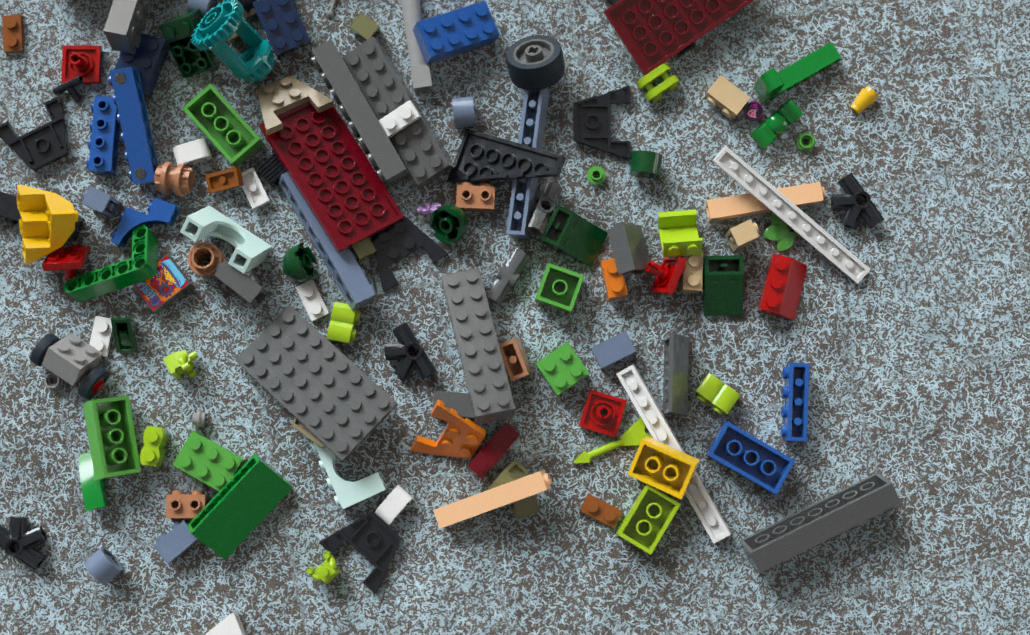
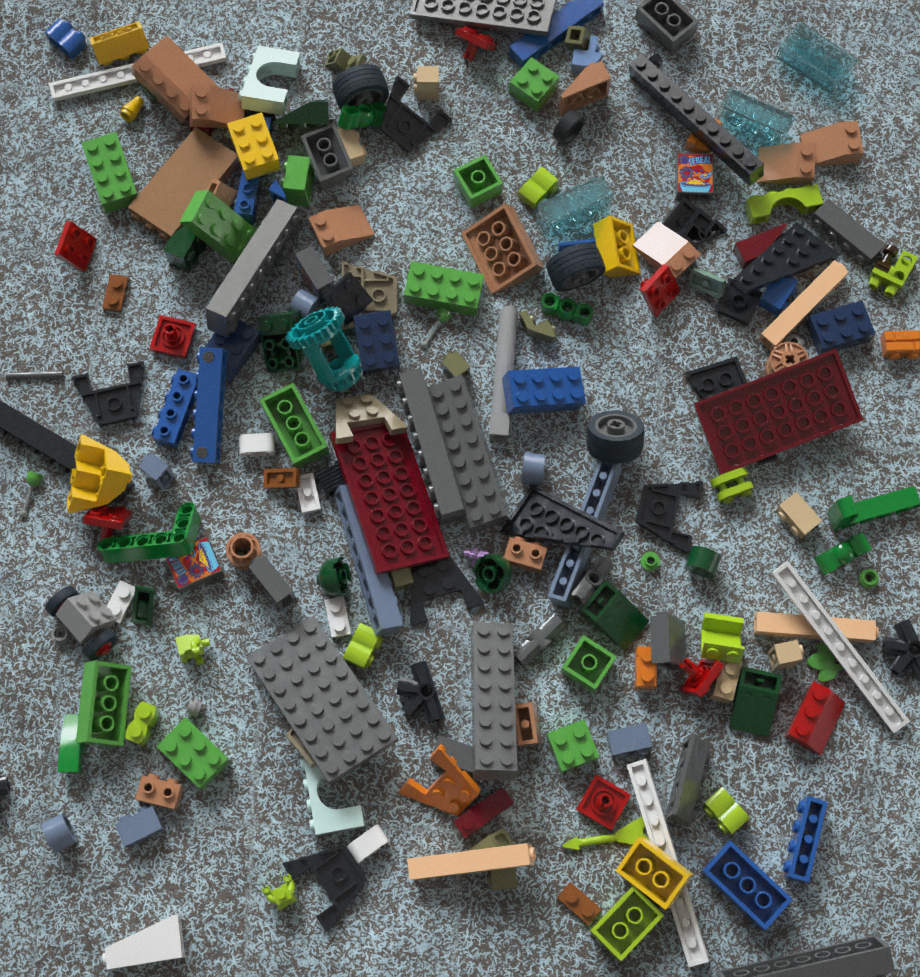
camera: 10 degrees right, 10 degrees down
(69, 86) = (155, 354): black piece -> none
(159, 213) = (209, 494): blue arch -> none
(176, 179) = (232, 465): nougat piece -> none
(239, 506) = (212, 806): green brick -> none
(249, 248) = (288, 550): light aqua arch -> none
(400, 118) = (469, 459): white plate -> none
(753, 111) = (822, 535): tile -> none

